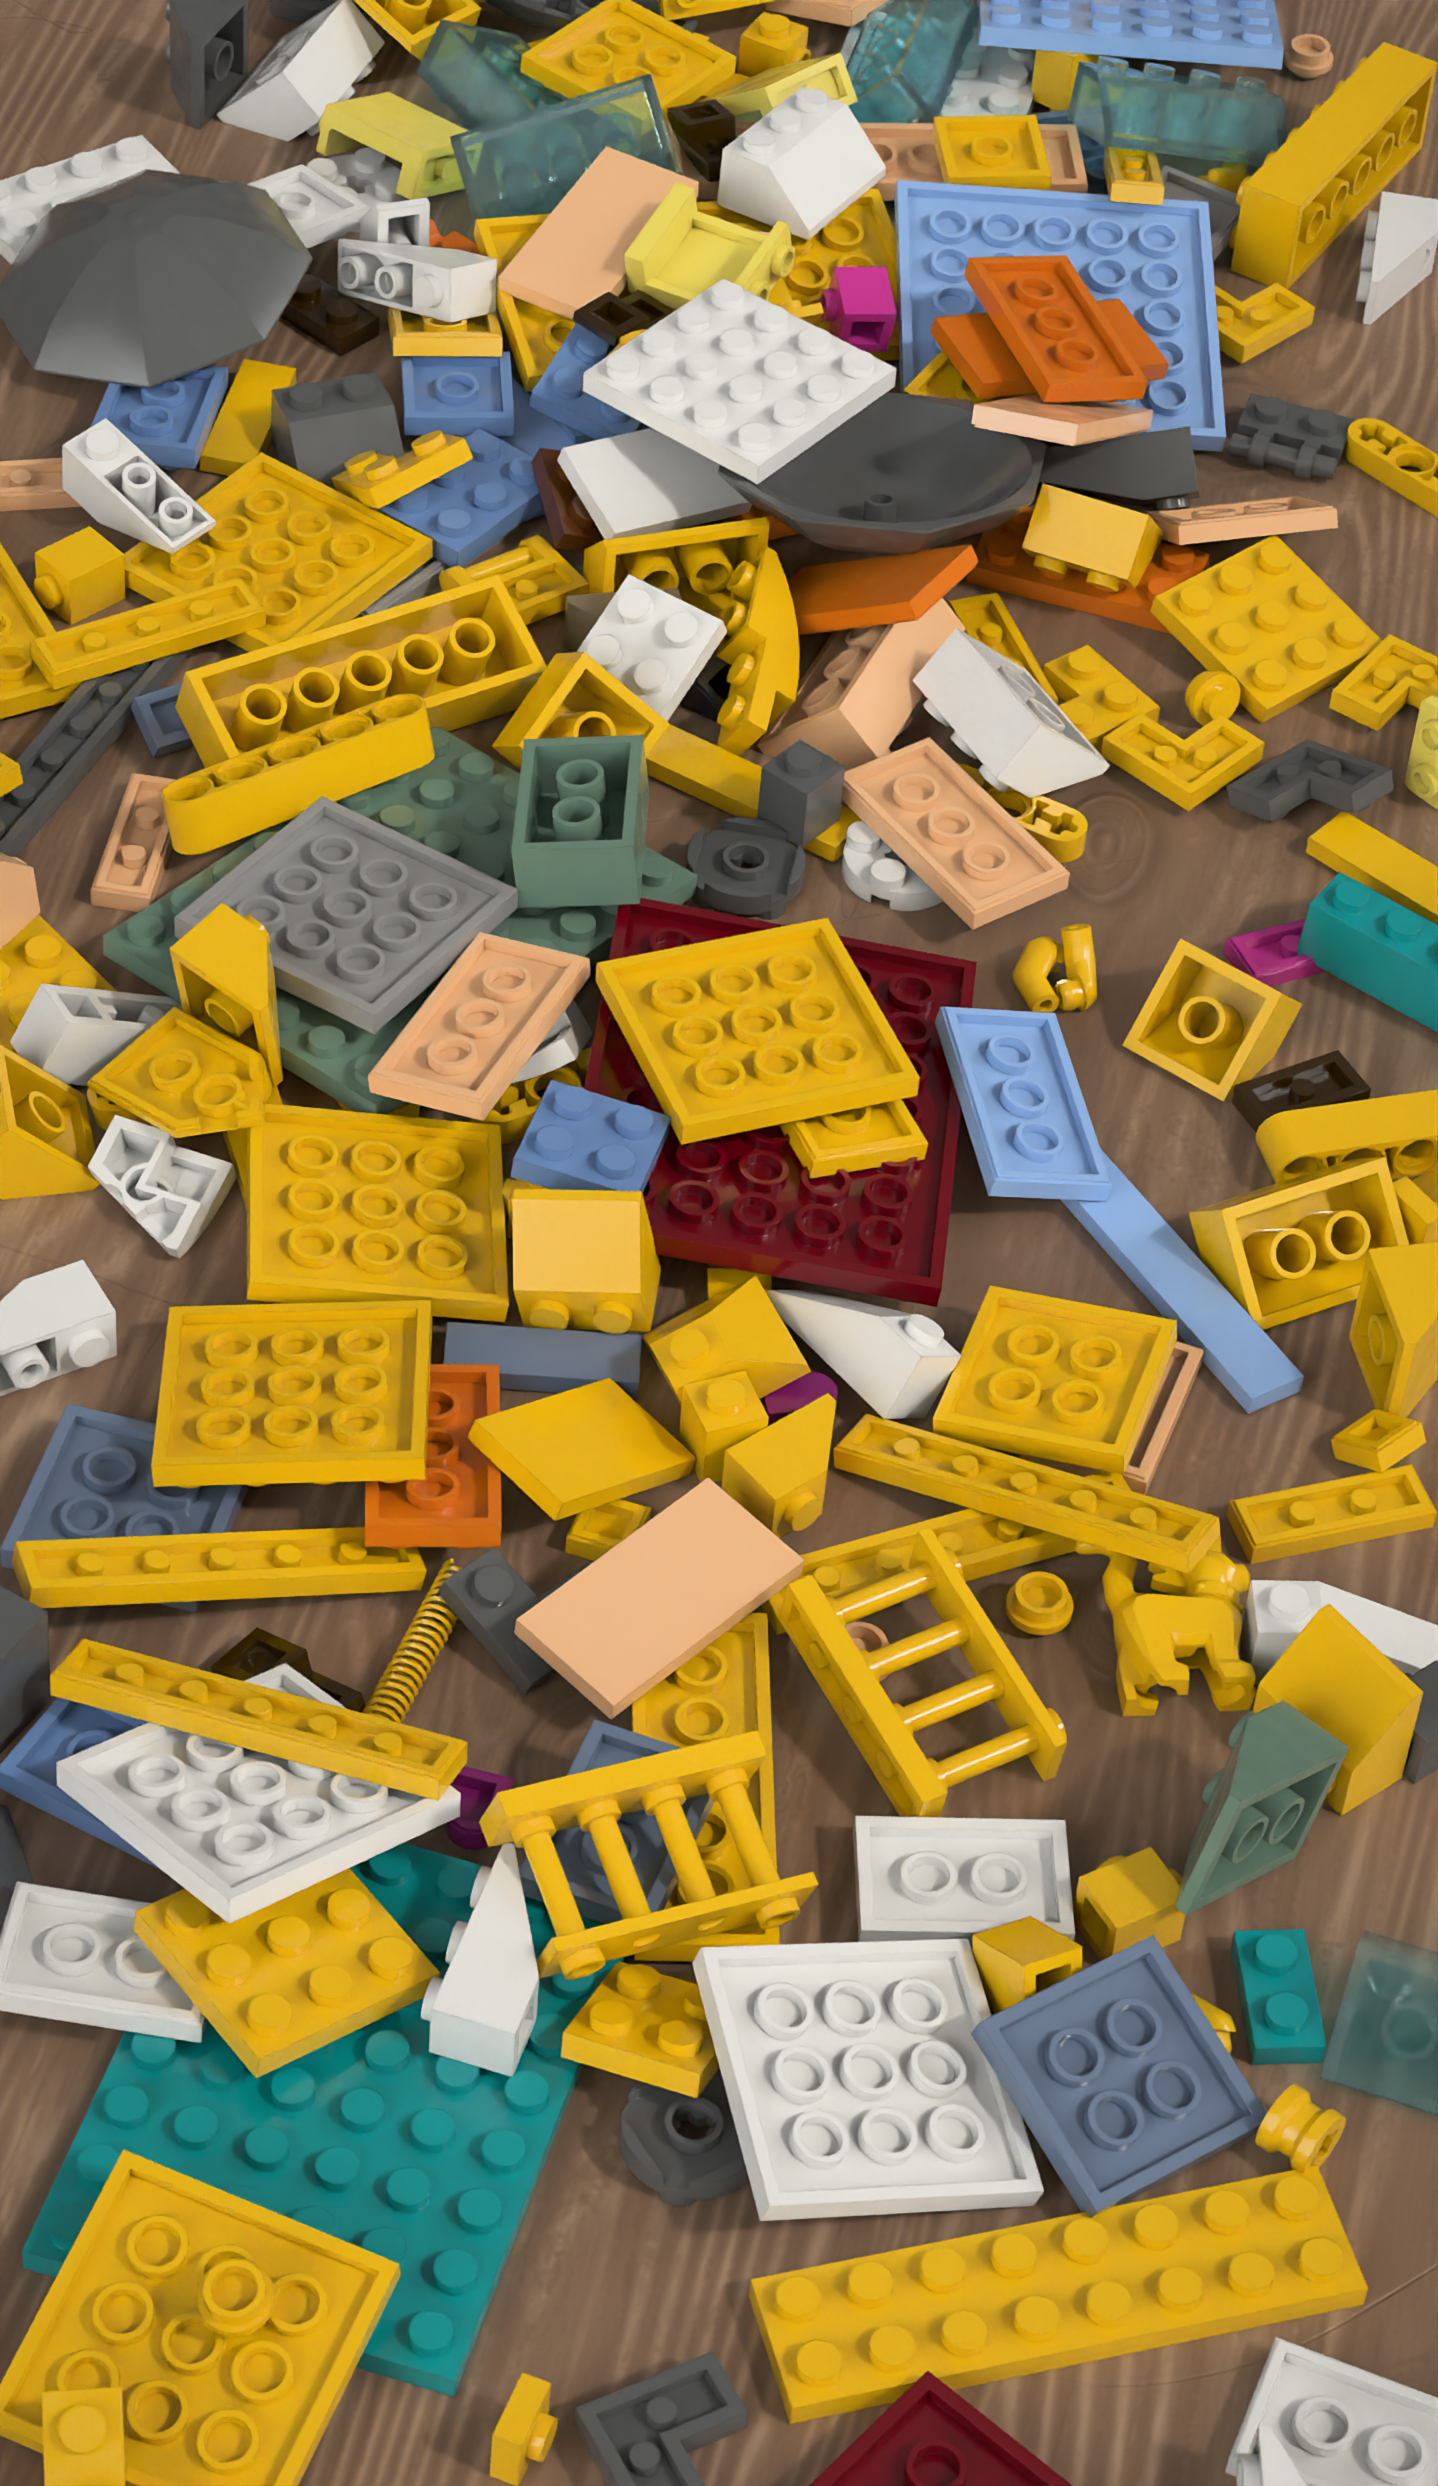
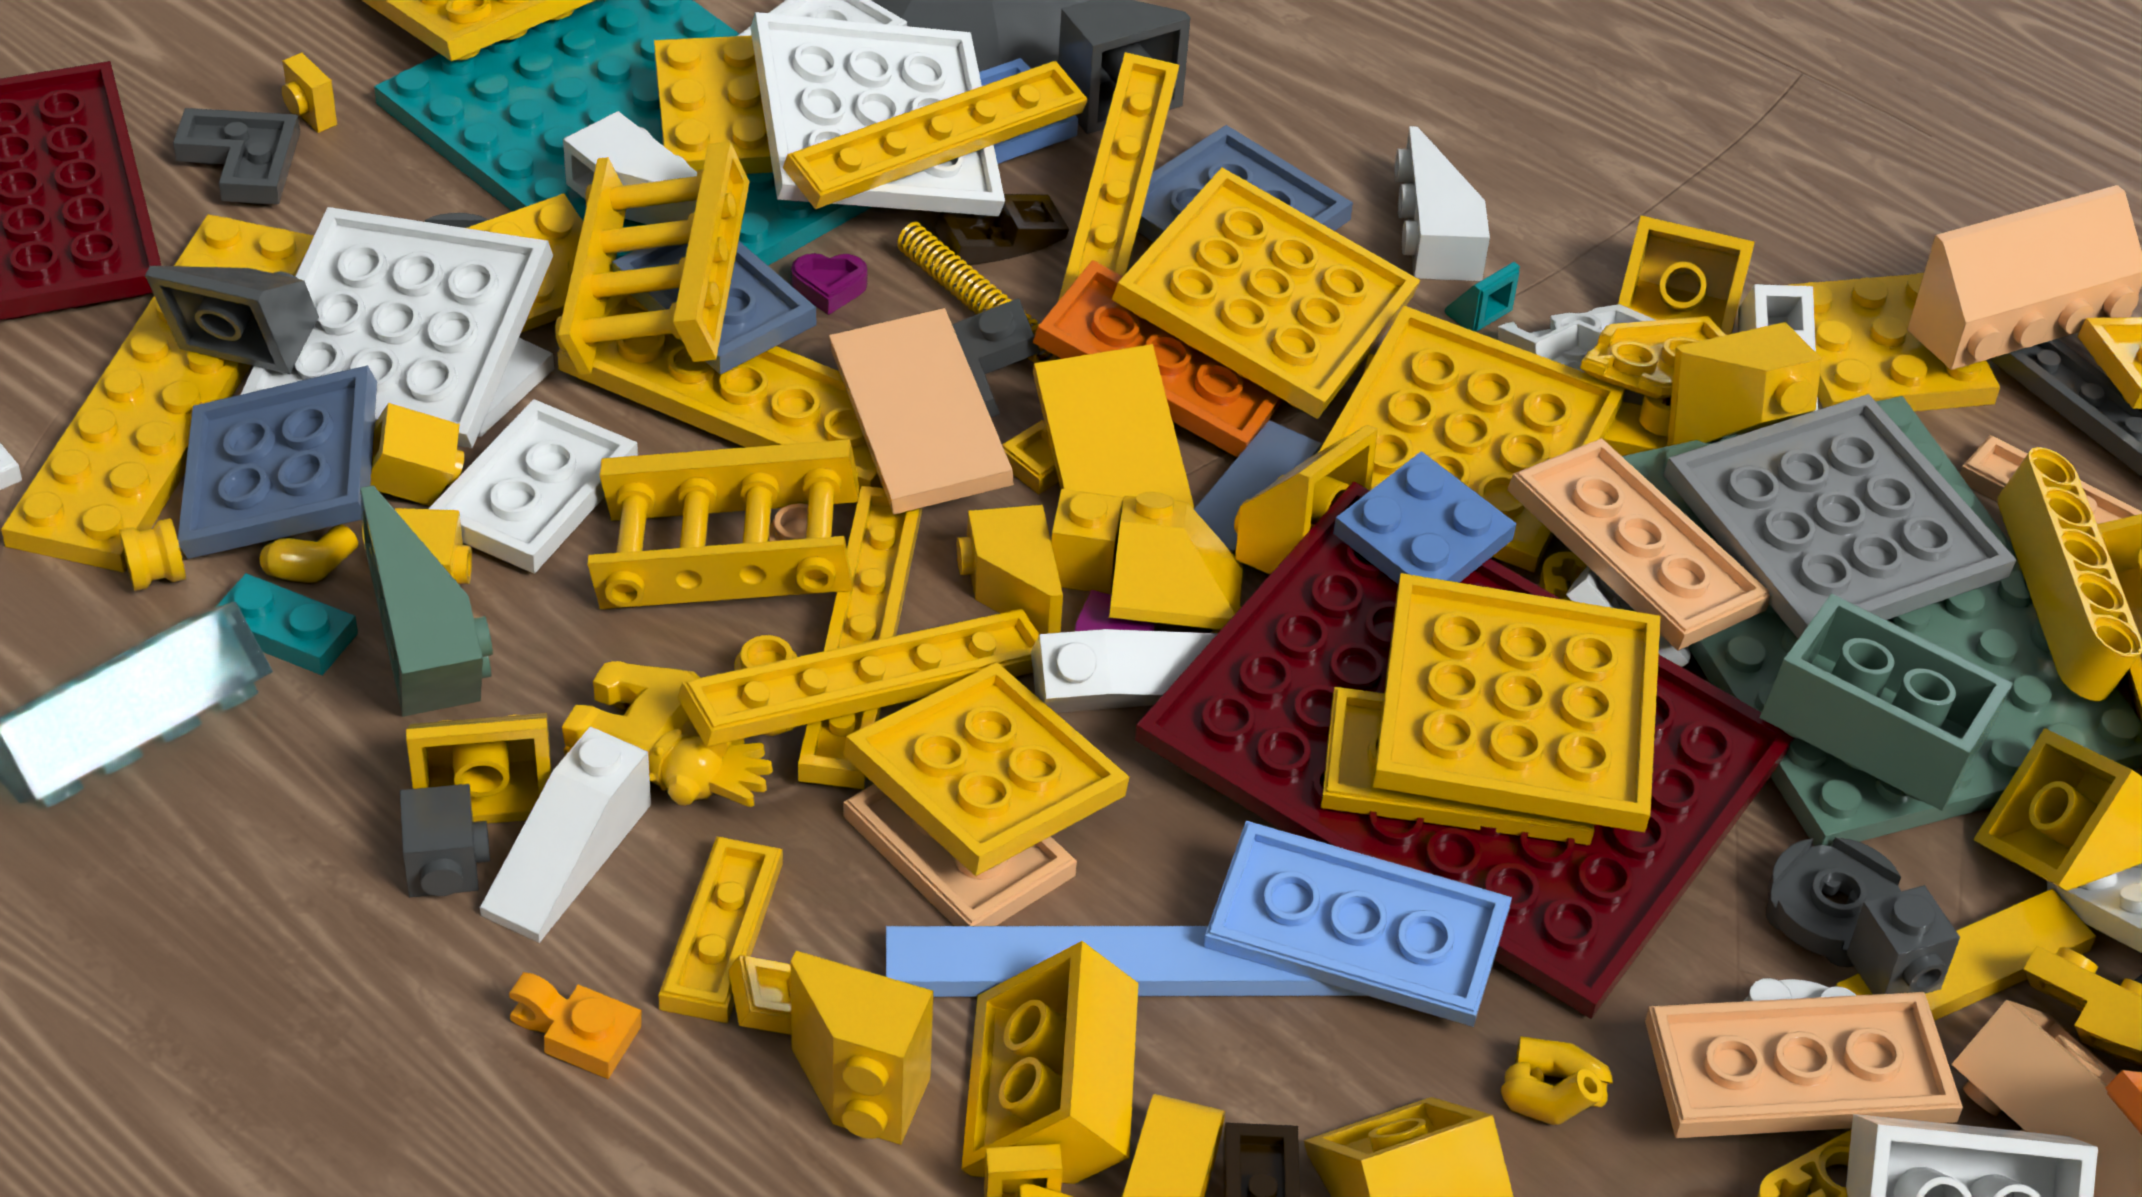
camera: 120 degrees right, 0 degrees up
(137, 1271) = (1486, 299): none -> teal slope
(997, 2170) = (236, 313): none -> dark grey slope

